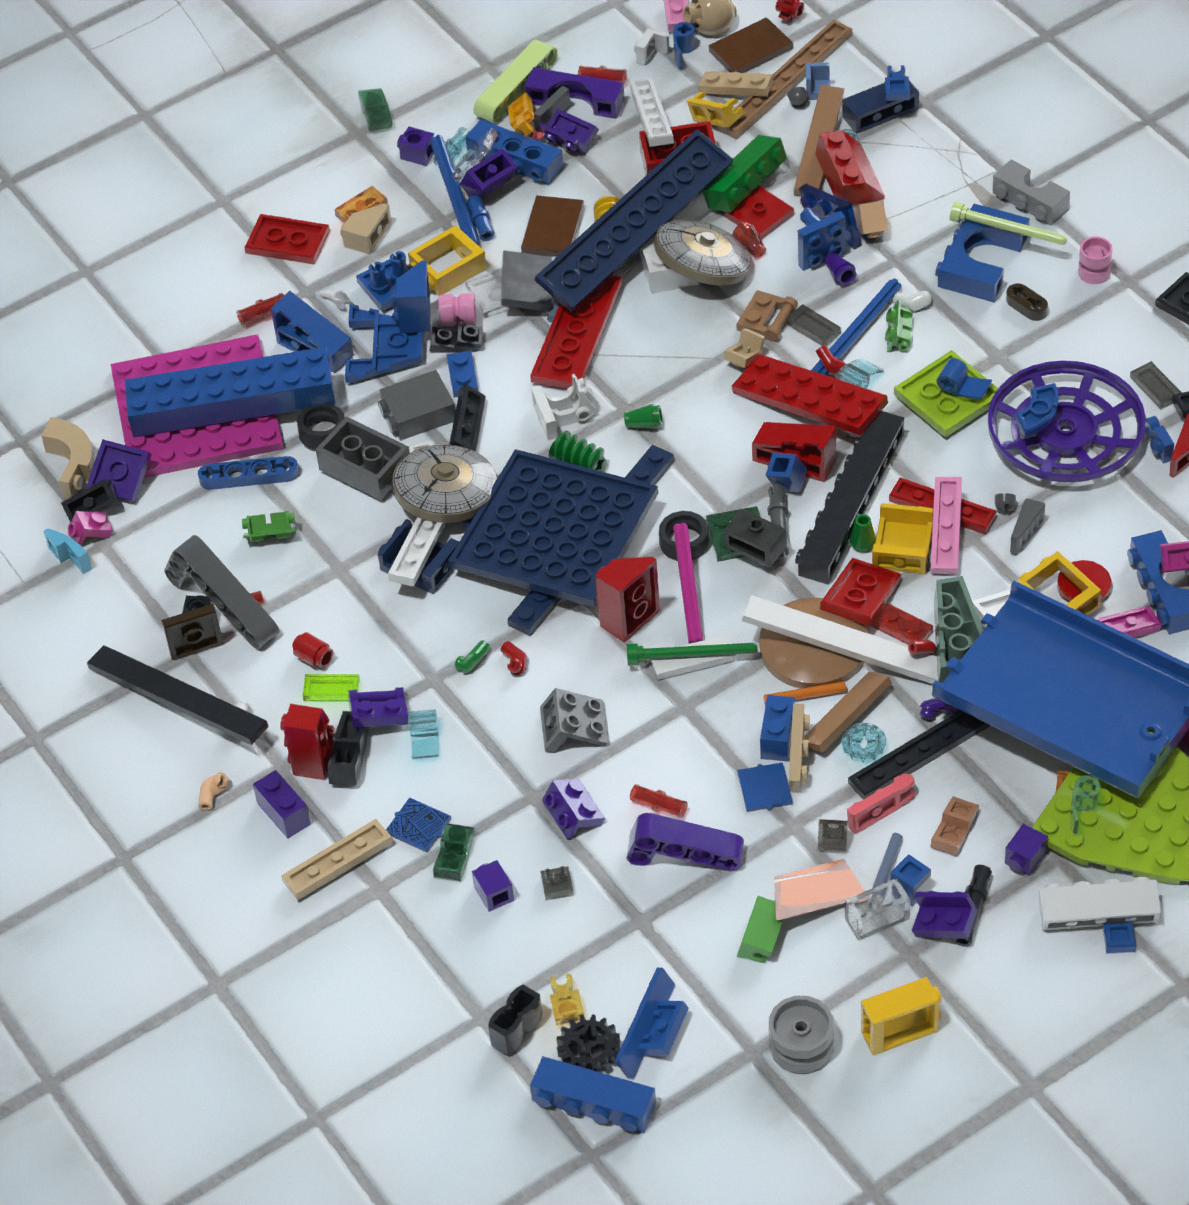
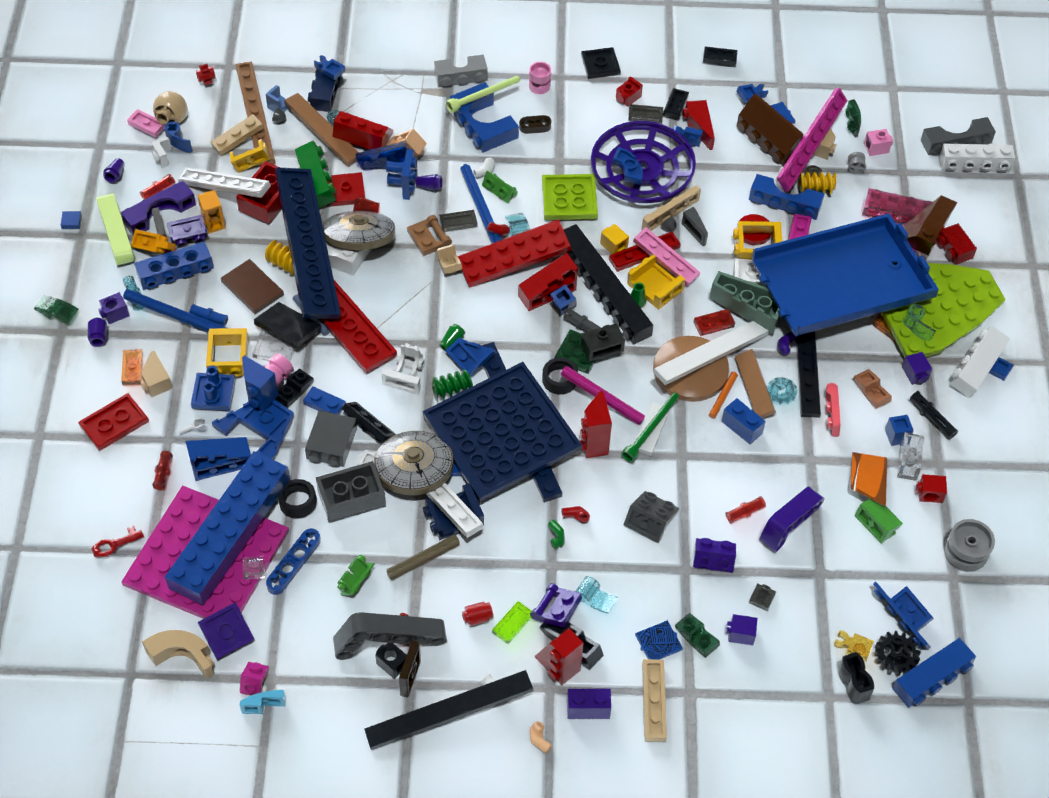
camera: 60 degrees left, 5 degrees up
(91, 499) = (233, 663): black slope -> none
(148, 332) = (114, 544): none -> red piece
(204, 442) = (254, 567): none -> clear brick
(343, 567) = (423, 557): none -> dark tan axle
(377, 154) = (97, 331): none -> dark purple brick
(474, 154) = (165, 282): clear tile -> none
(489, 174) = (183, 288): dark purple brick -> none
(496, 45) = (70, 219): none -> blue tile
(589, 30) = (113, 171): none -> dark purple cone
(605, 129) = (211, 211): none -> light orange brick
(631, 444) = (469, 355): none -> blue wing
(751, 46) = (212, 111): reddish brown tile -> none
(764, 787) = (773, 455): blue piece -> none
(799, 747) = (773, 425): tan plate -> none
(832, 835) = (838, 444): clear smoke tile -> none
(855, 958) = (932, 488): none -> red brick
(860, 591) = (677, 323): red tile -> none
(888, 859) = (877, 438): sand blue bar -> none
(900, 1015) = (993, 492): yellow window -> none
(922, 647) = (744, 321): red arm -> none
(925, 466) = (614, 239): none -> yellow brick
(944, 914) = (937, 430): dark purple bracket -> none
(955, 381) = (574, 186): blue panel -> none
(1051, 493) = (672, 208): none -> tan plate
(1168, 349) = (629, 91): none -> red brick

